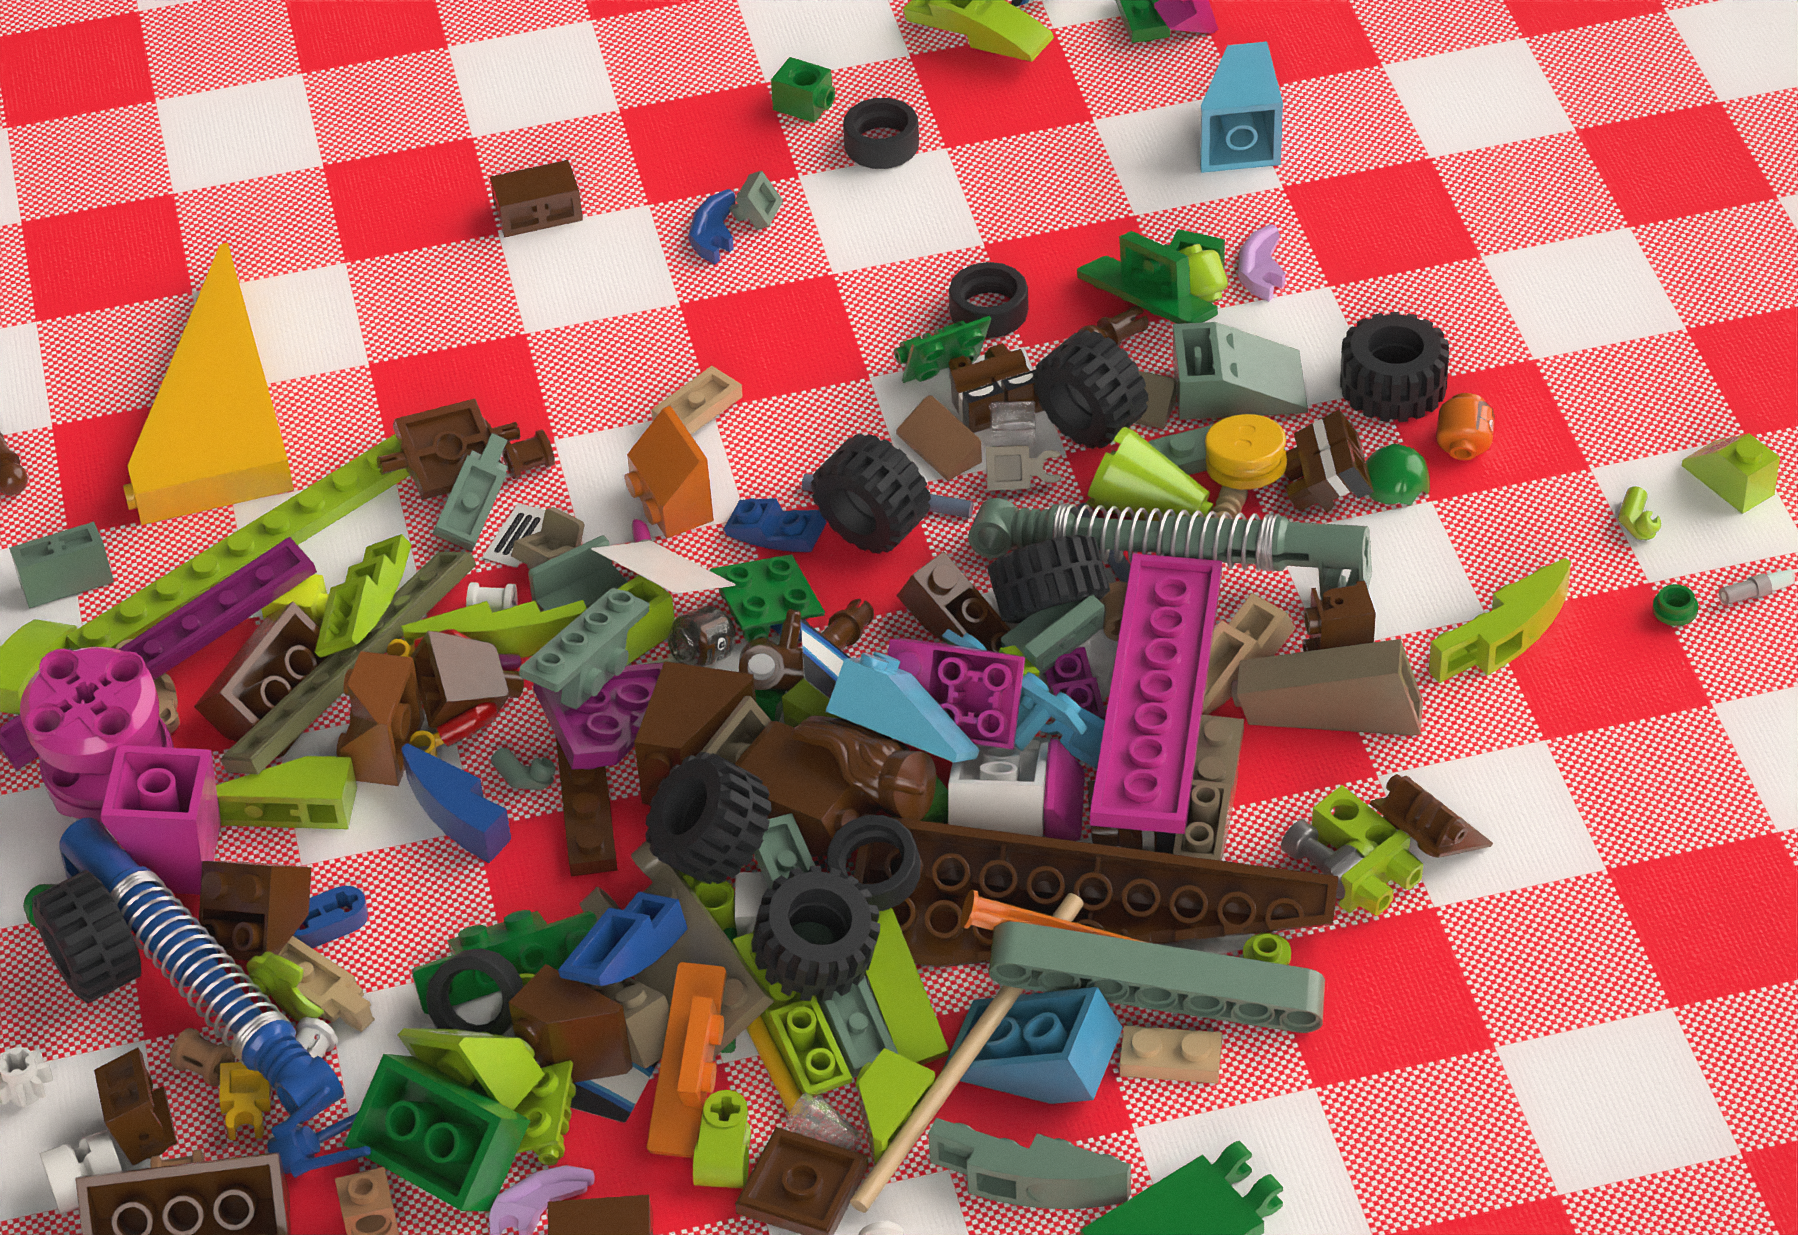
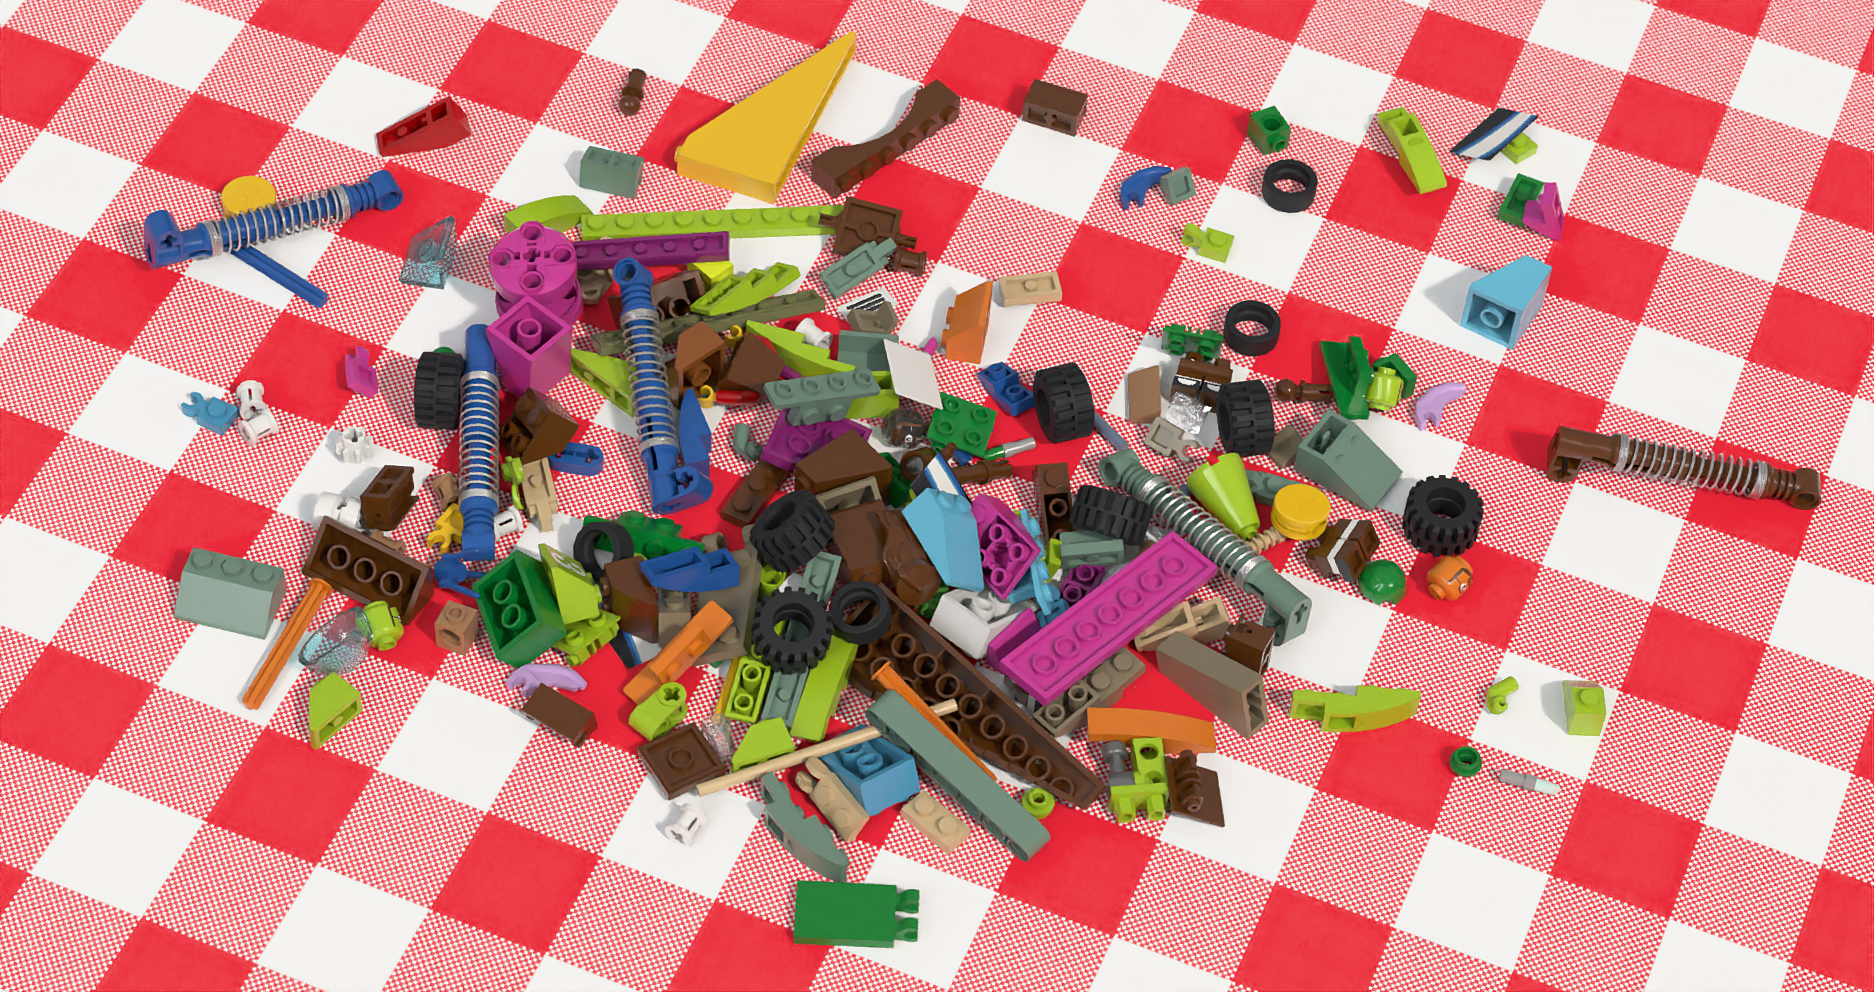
camera: 30 degrees right, 5 degrees up
(281, 693) = (658, 444): none -> blue piece
(349, 395) = (845, 166): none -> reddish brown arch
(843, 588) = (1009, 449): none -> light grey piece
(851, 239) = (1211, 244): none -> lime plate
(1033, 1106) = (833, 799): none -> tan hinge
(1294, 793) = (1176, 730): none -> orange slope
(1463, 213) = (1618, 452): none -> reddish brown piece

